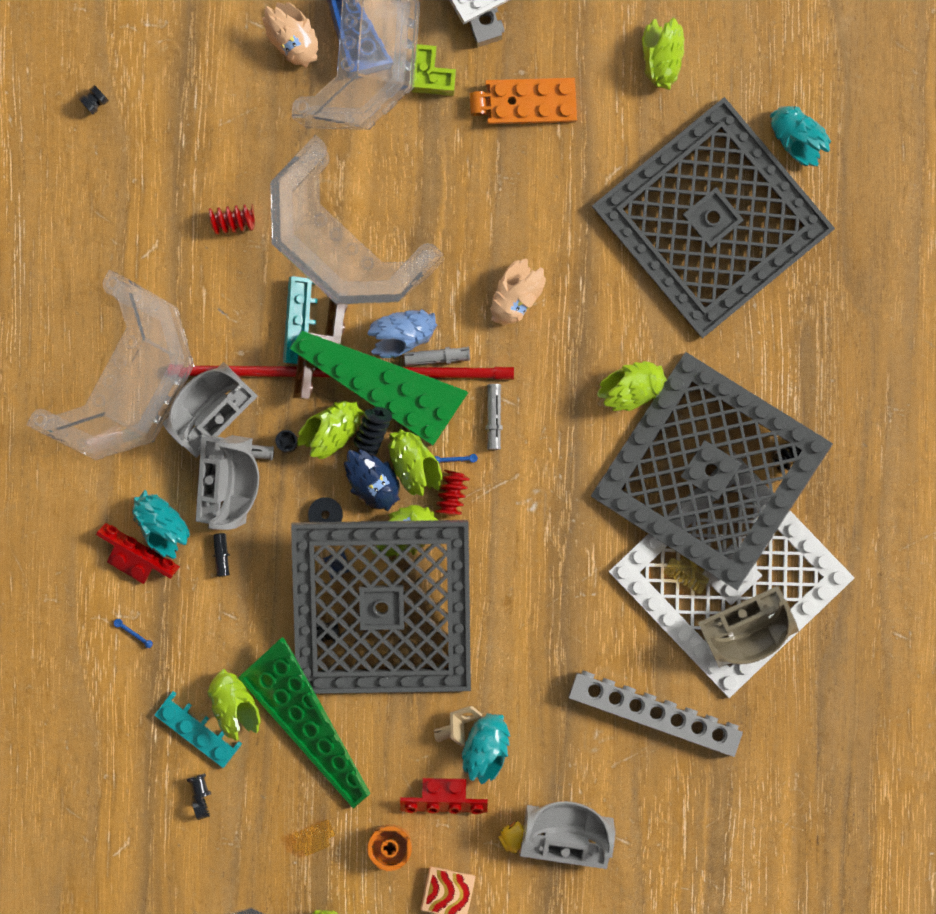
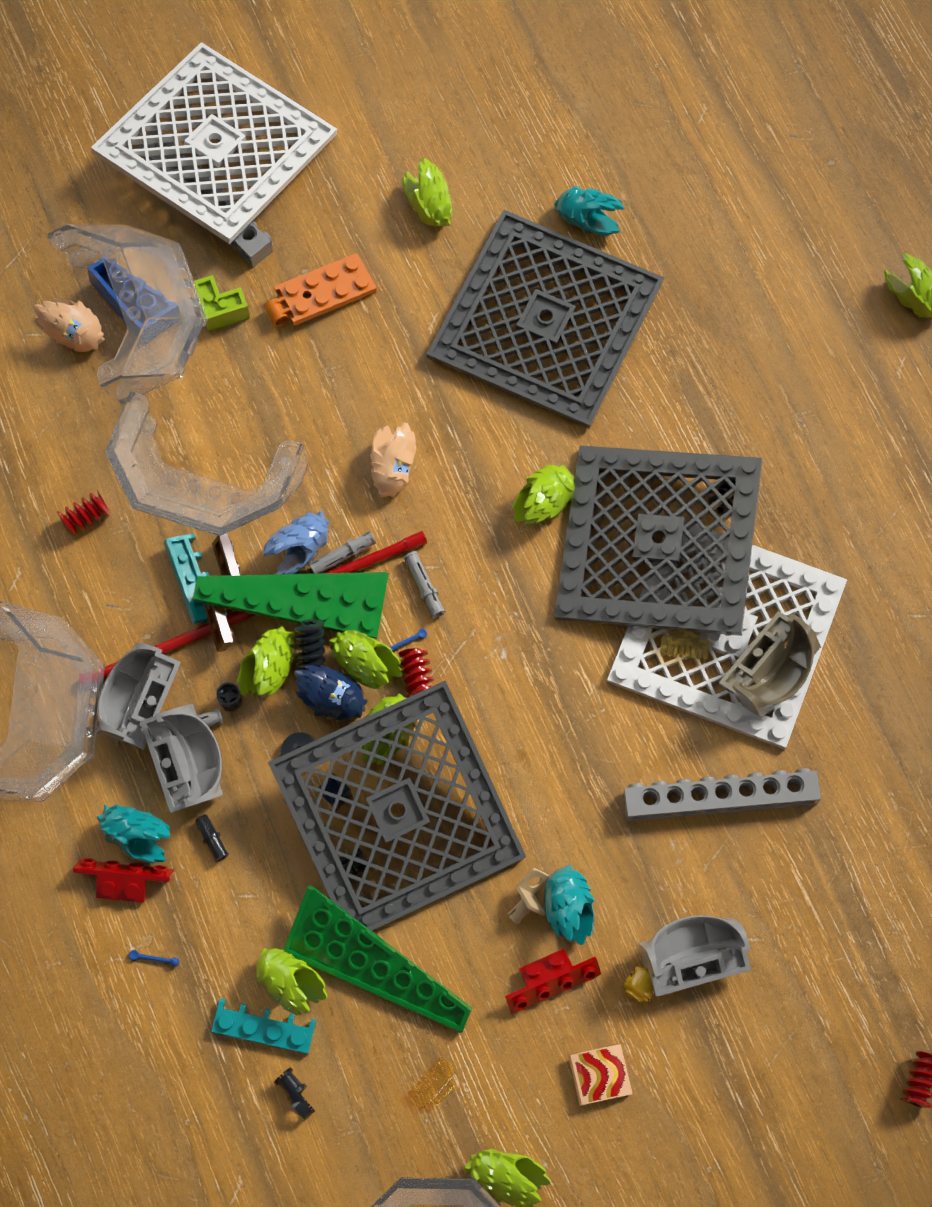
camera: 20 degrees left, 15 degrees down
(381, 856) = (524, 1040): orange brick -> none

